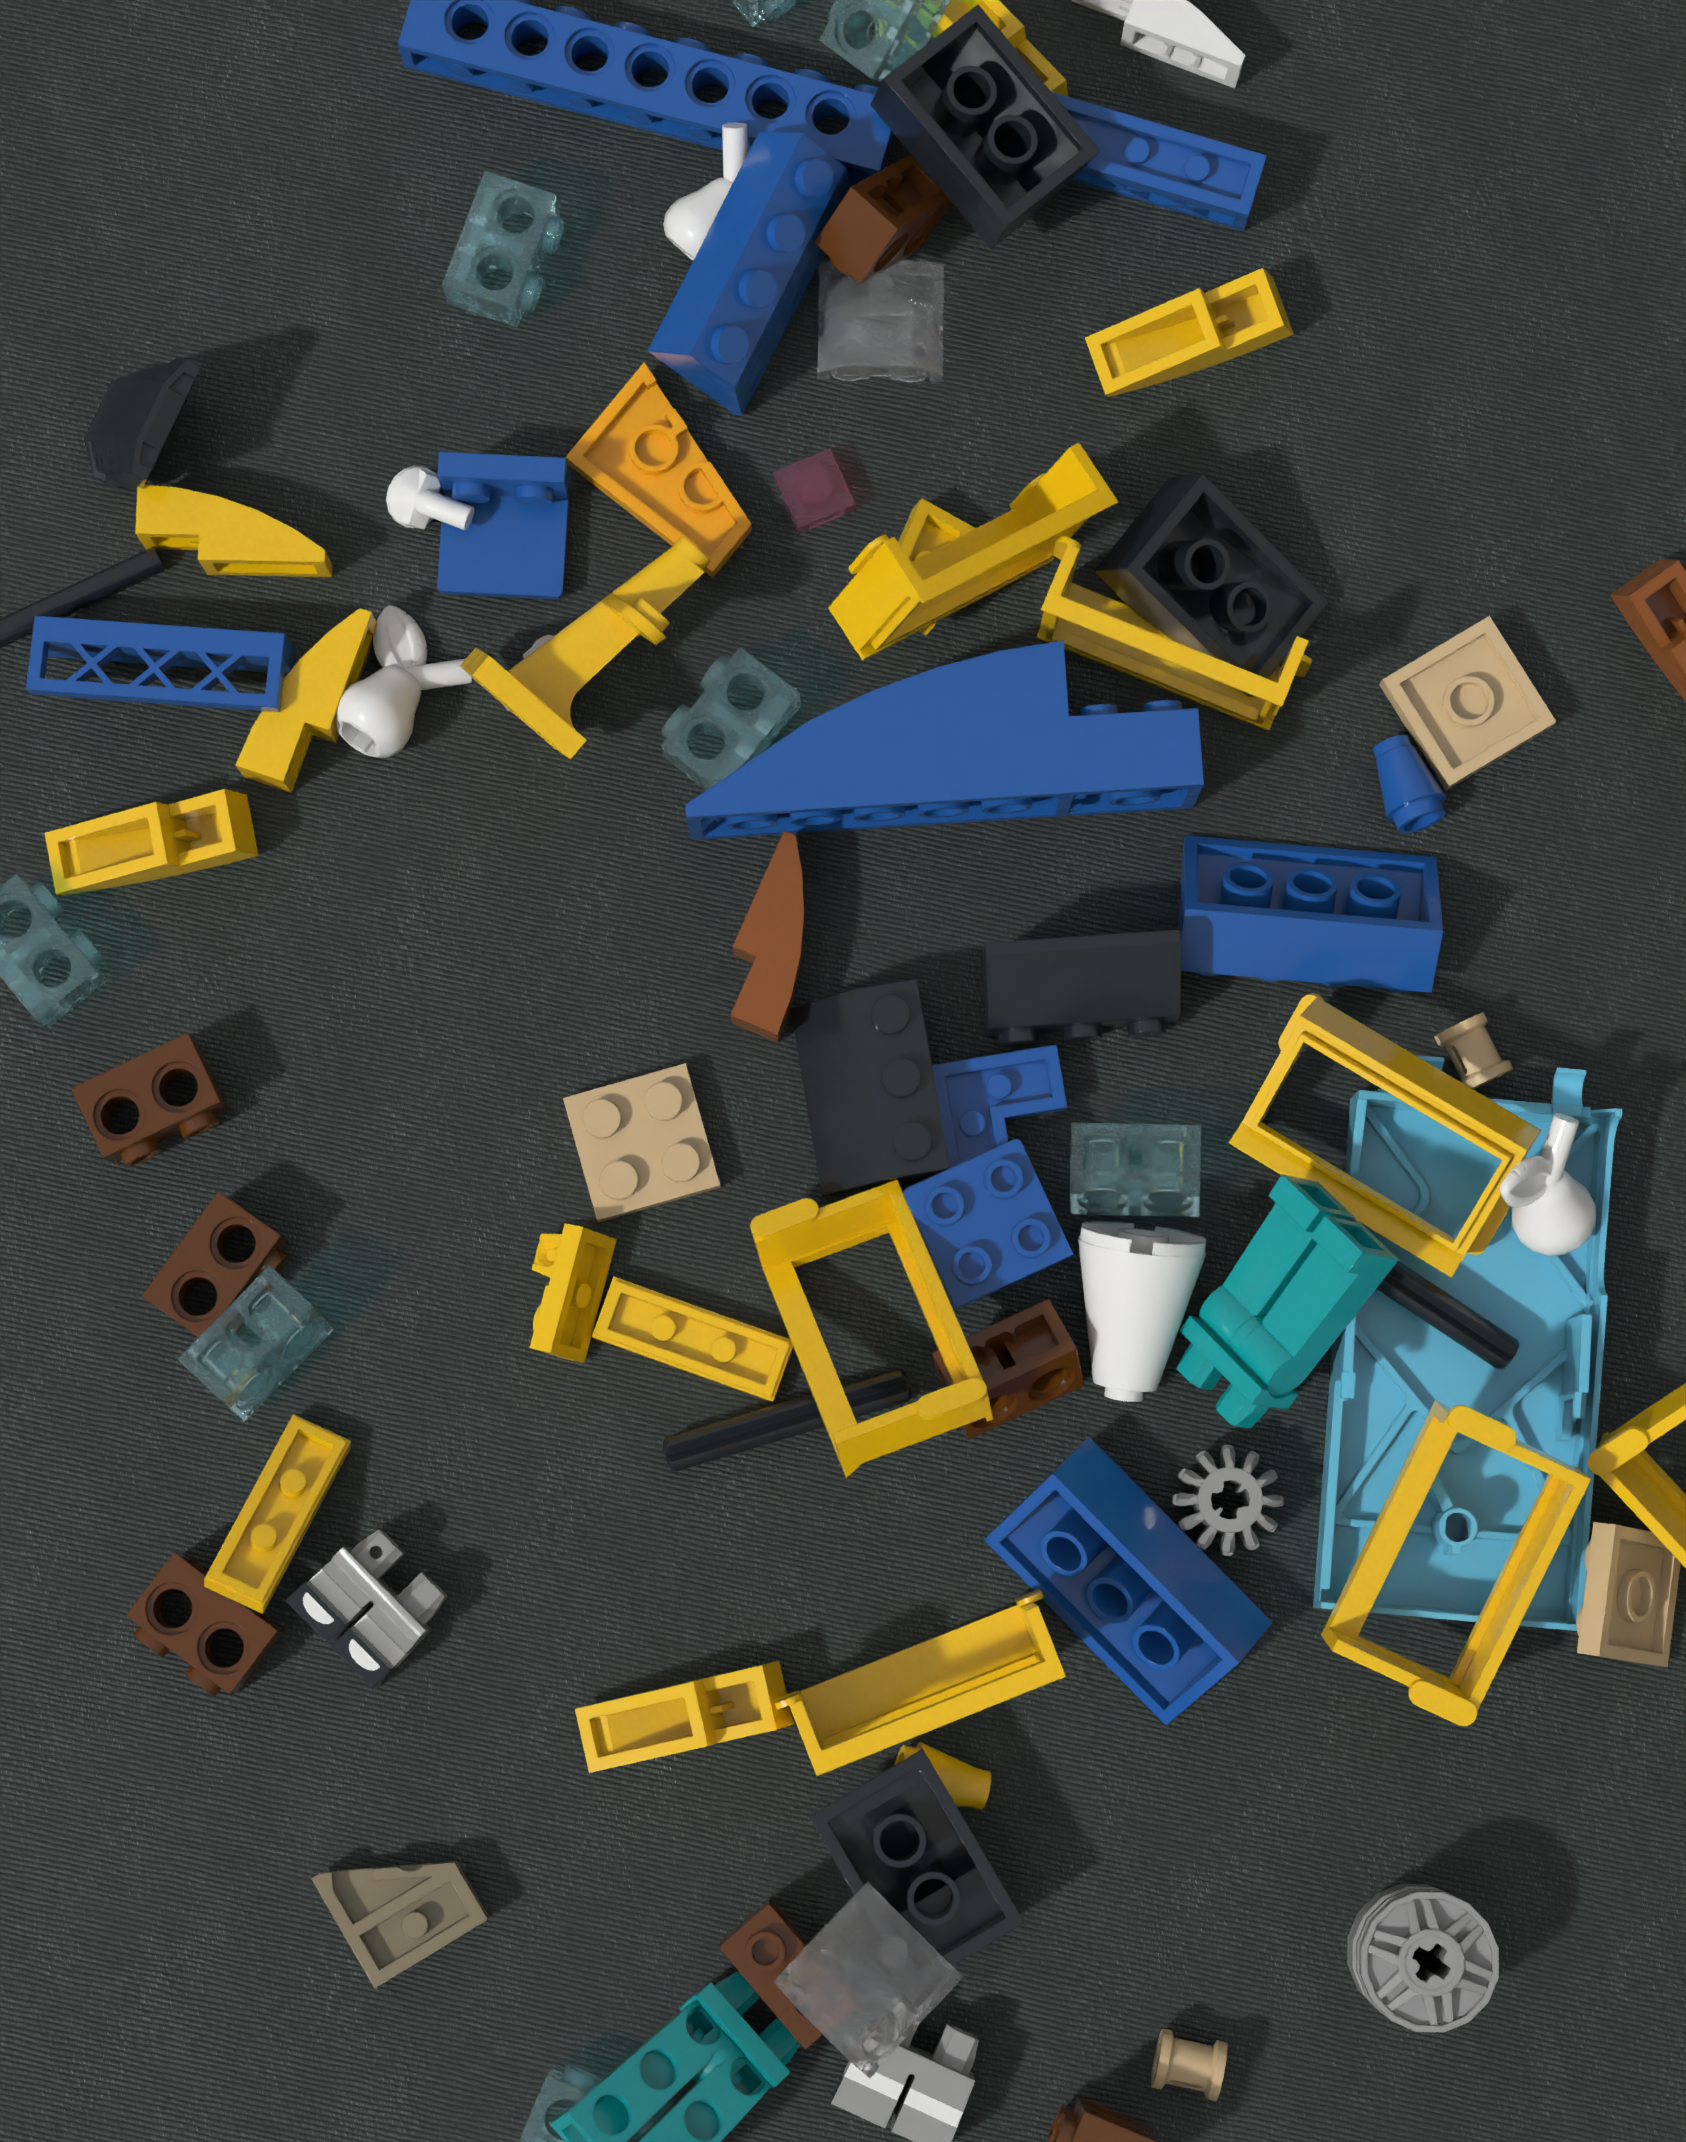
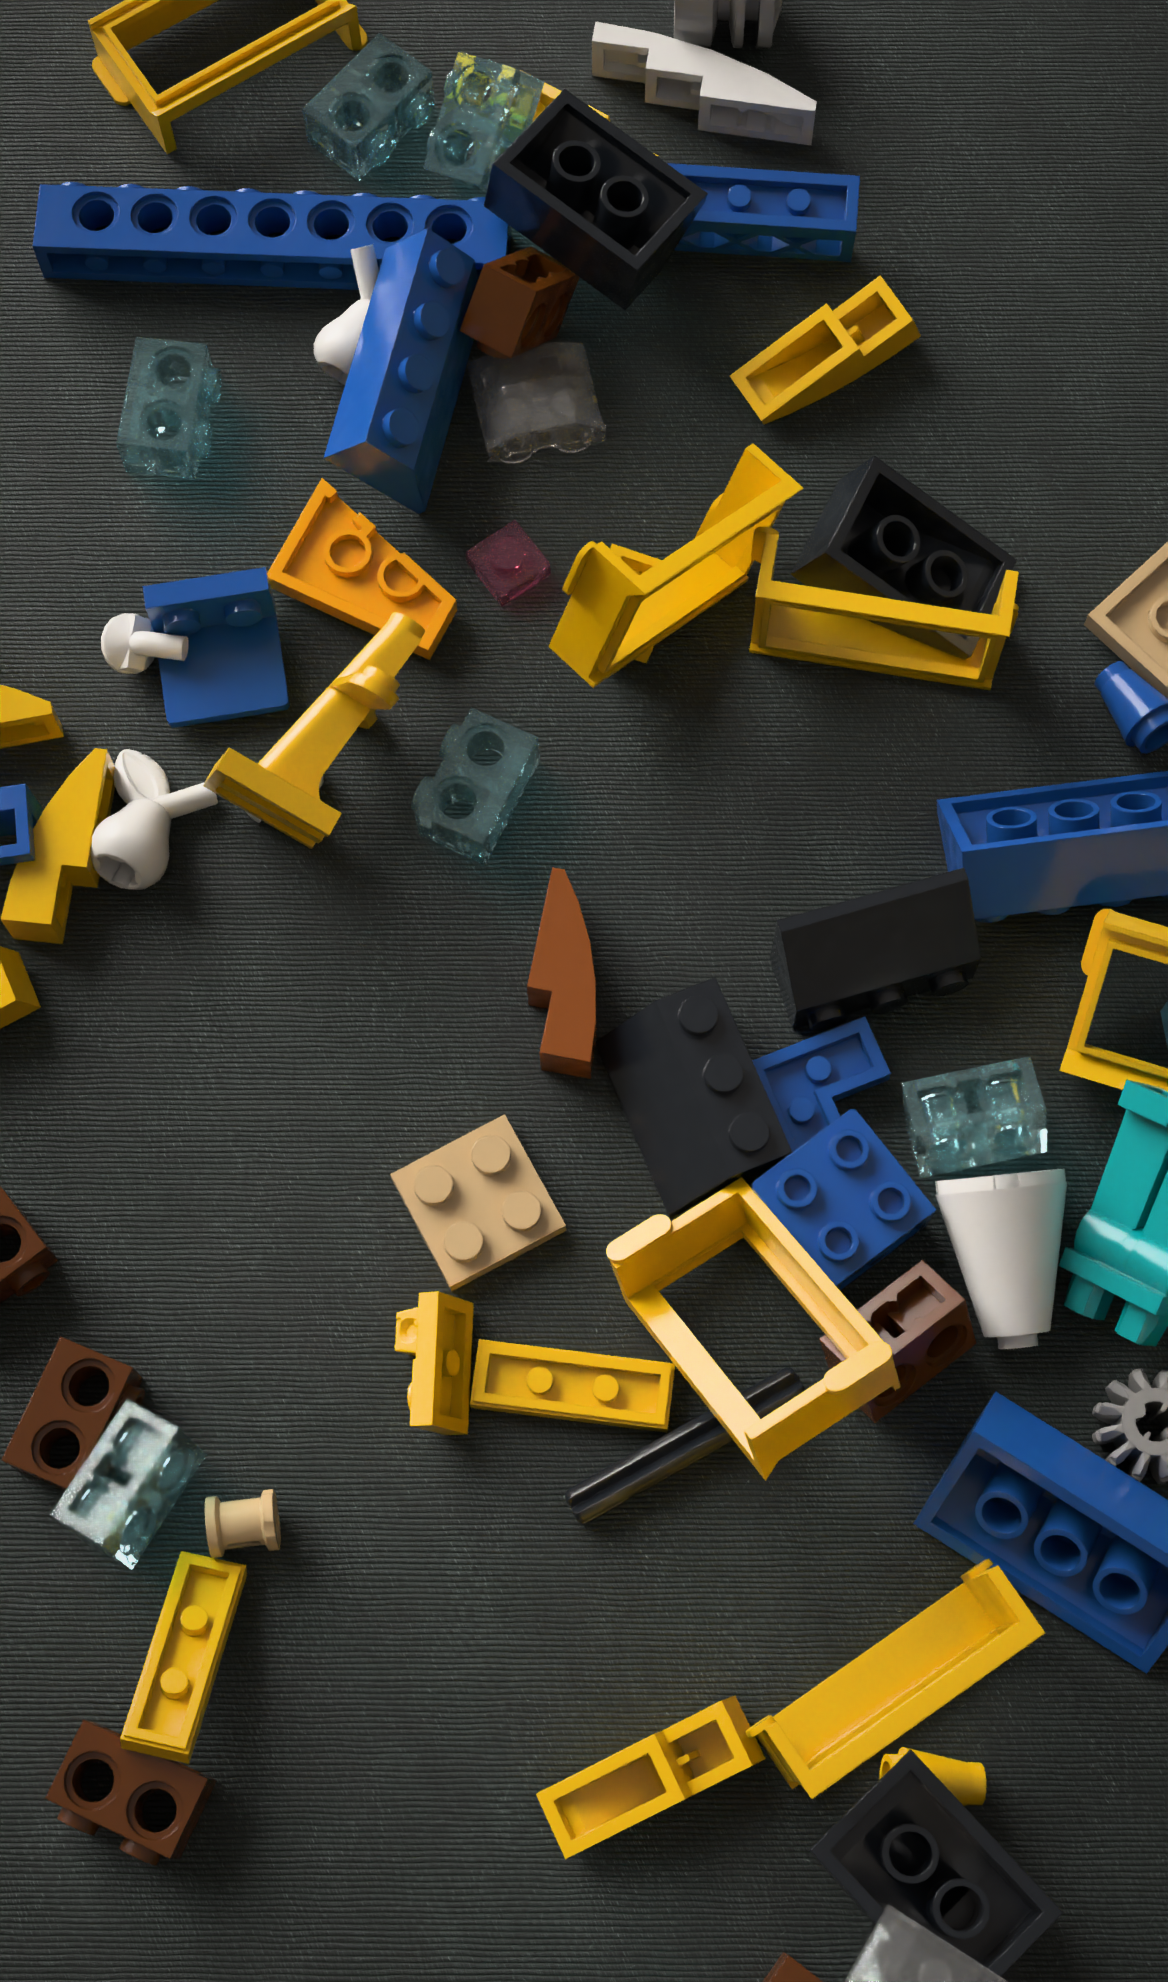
camera: 10 degrees left, 10 degrees down
(348, 1588) = (274, 1718): light grey hips -> none
(355, 1401) = (242, 1523): none -> tan bush
(961, 748) = (706, 757): blue slope -> none

